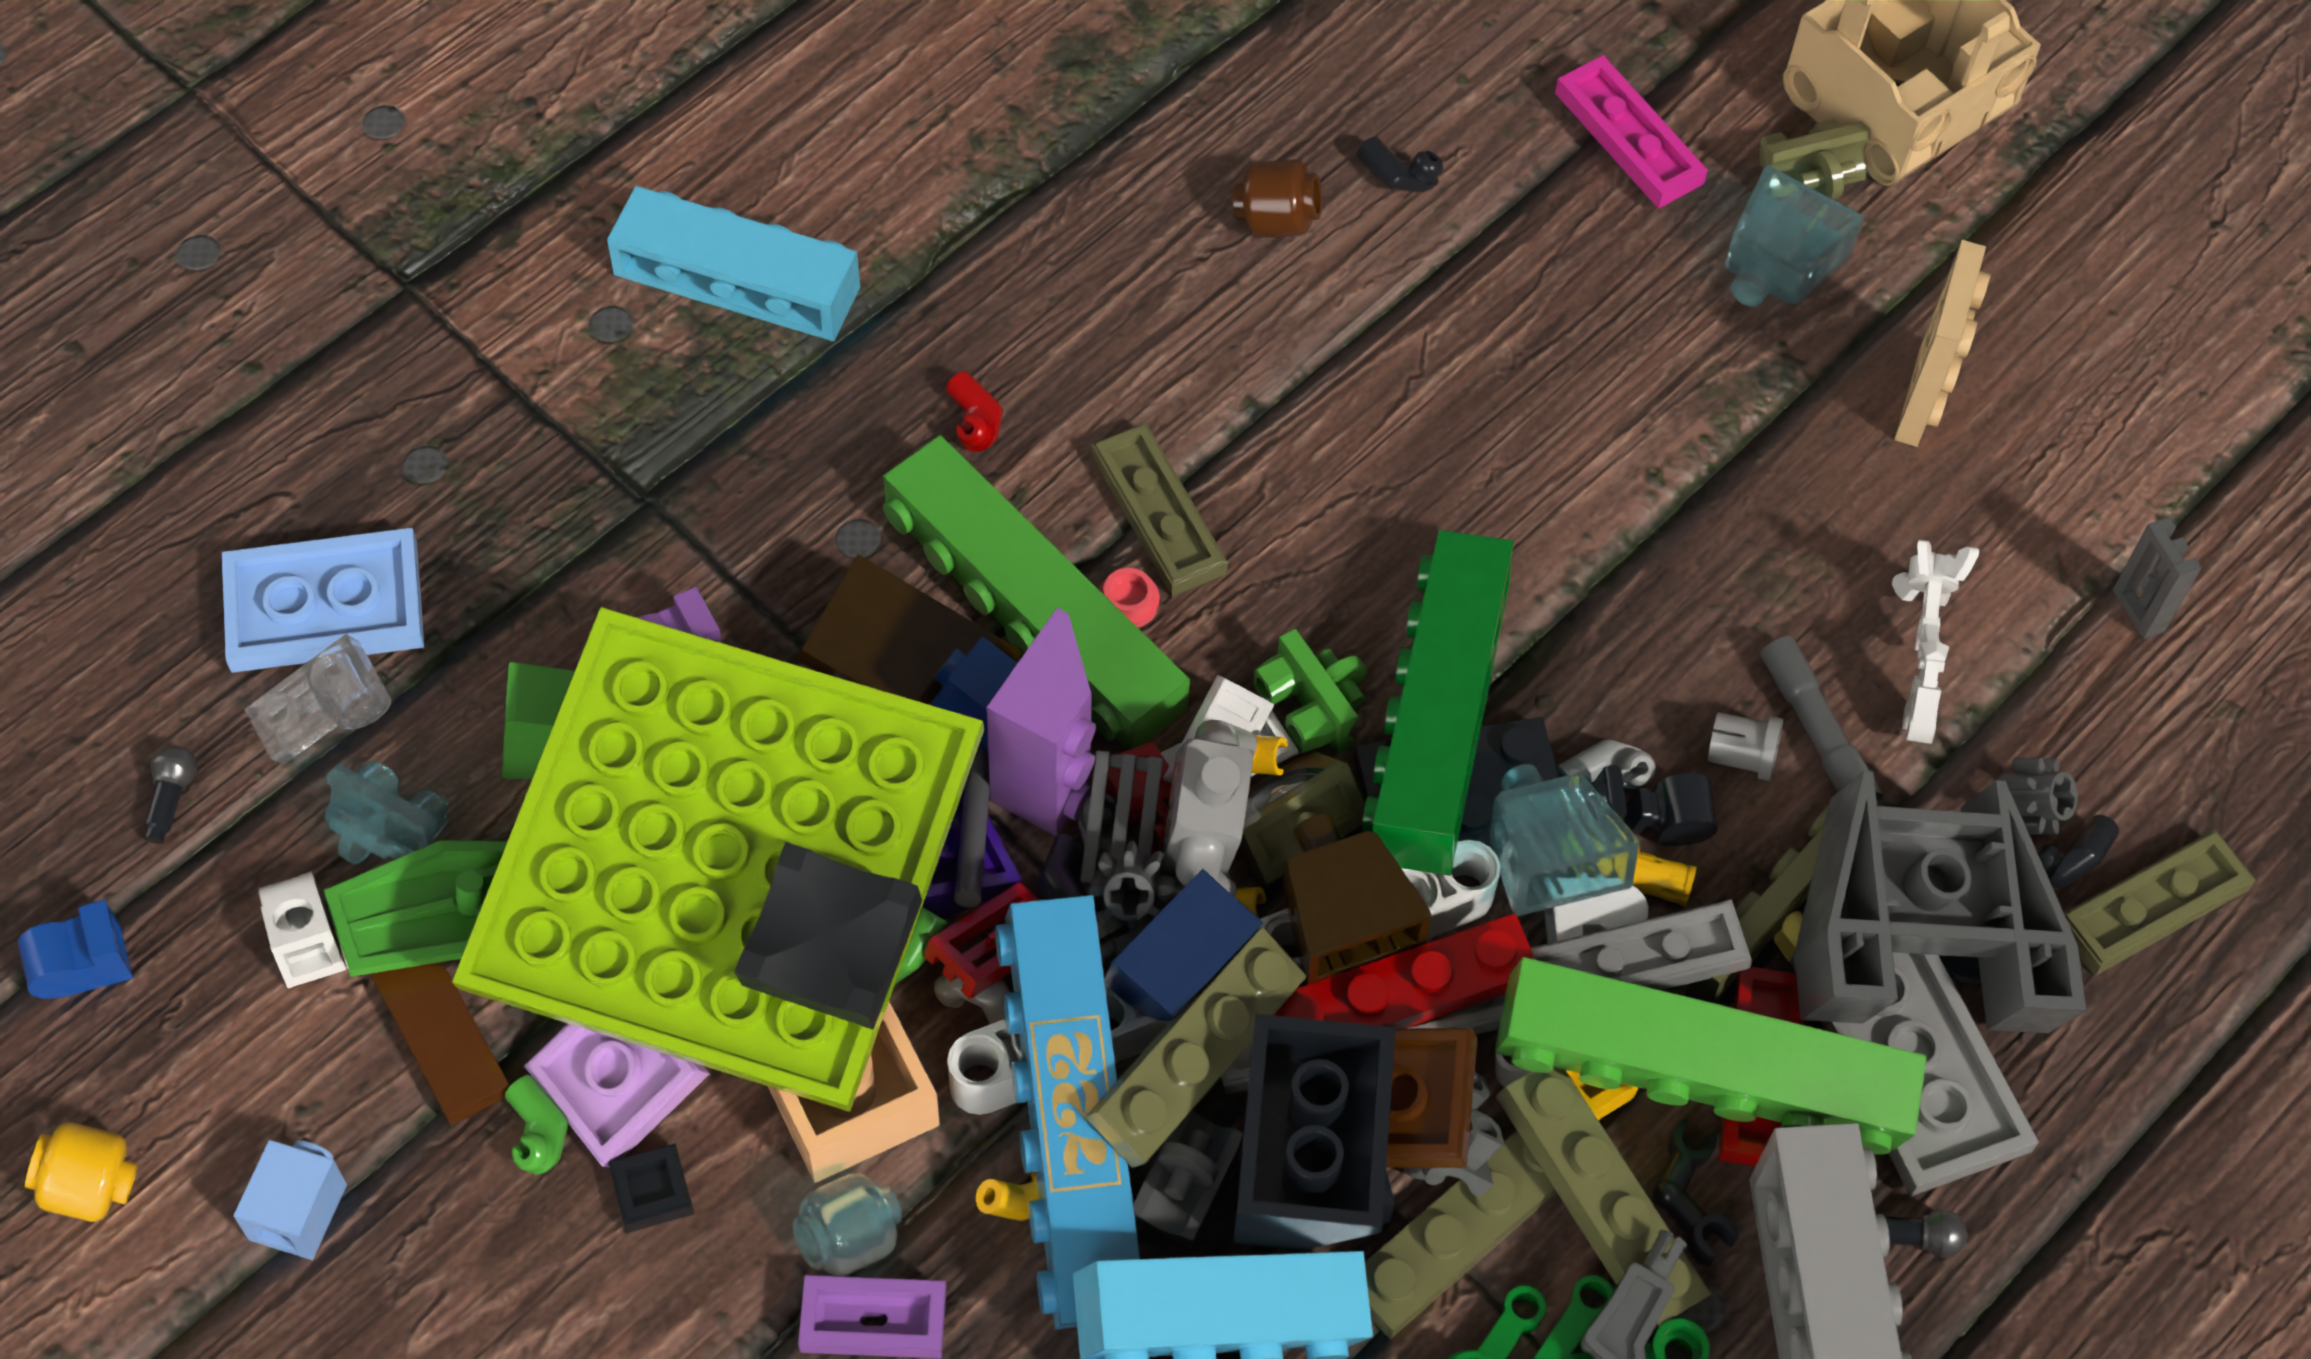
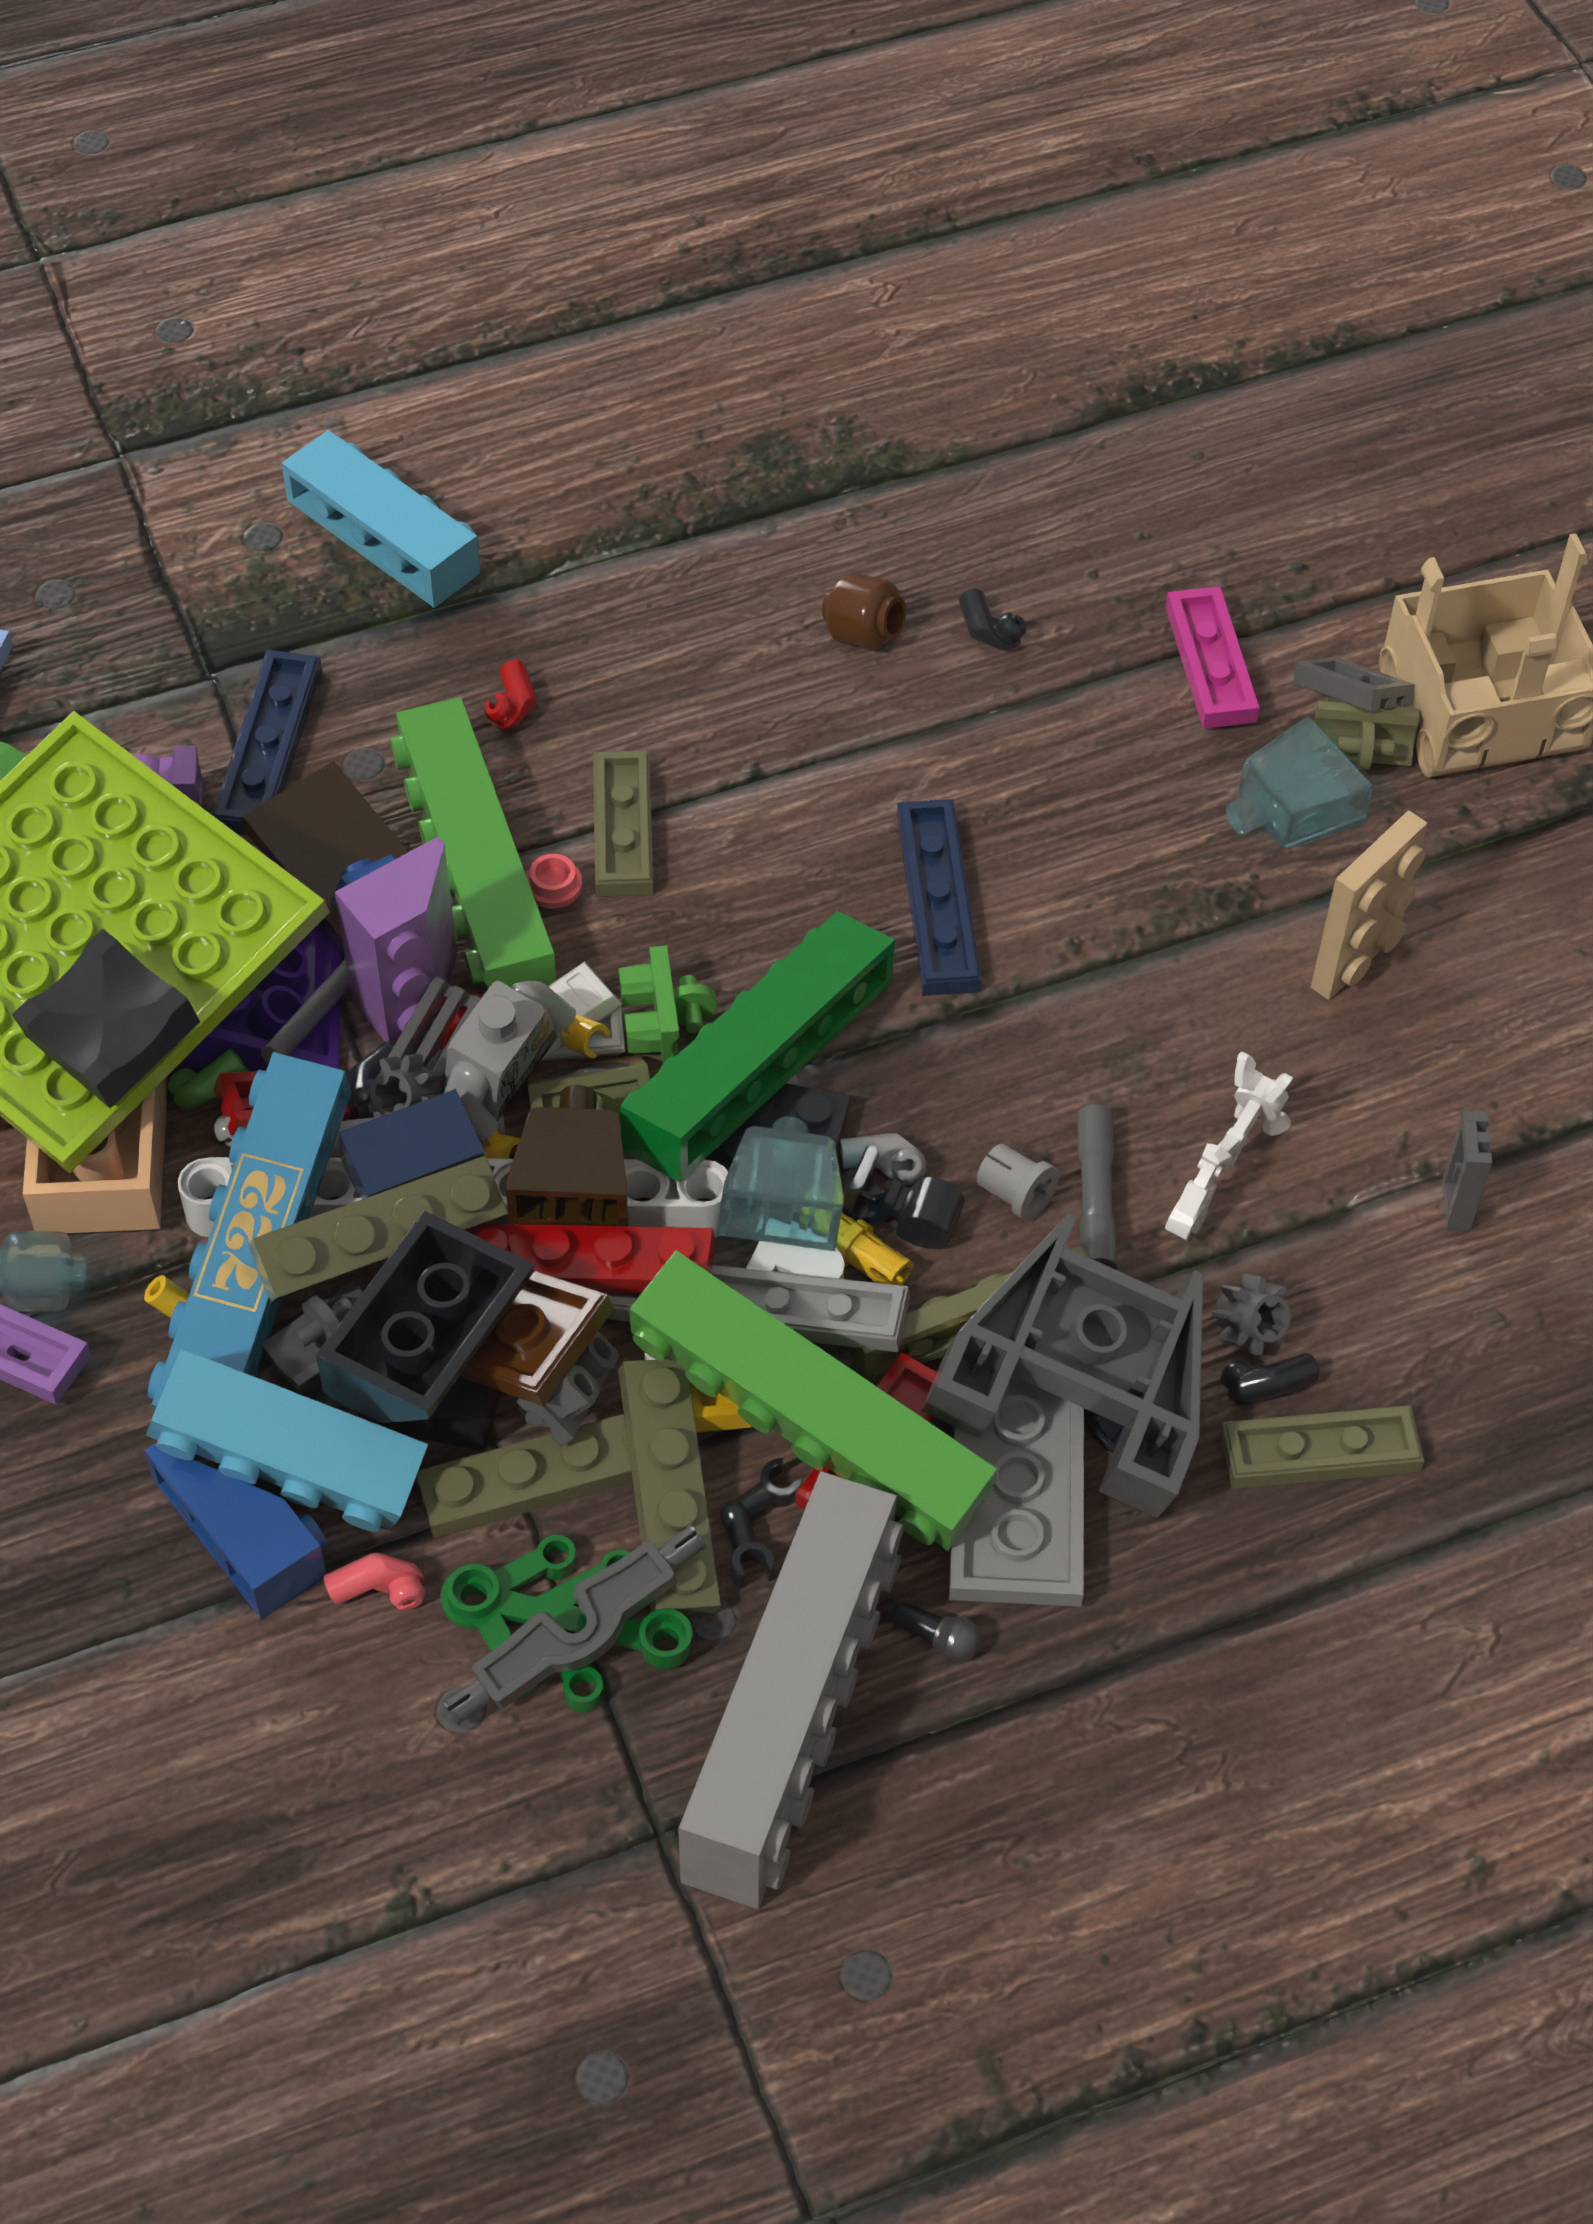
camera: 25 degrees right, 5 degrees down
(749, 550) = (268, 735): none -> dark blue tile
(1506, 475) = (938, 898): none -> dark blue tile
(1784, 115) = (1353, 683): none -> dark grey tile

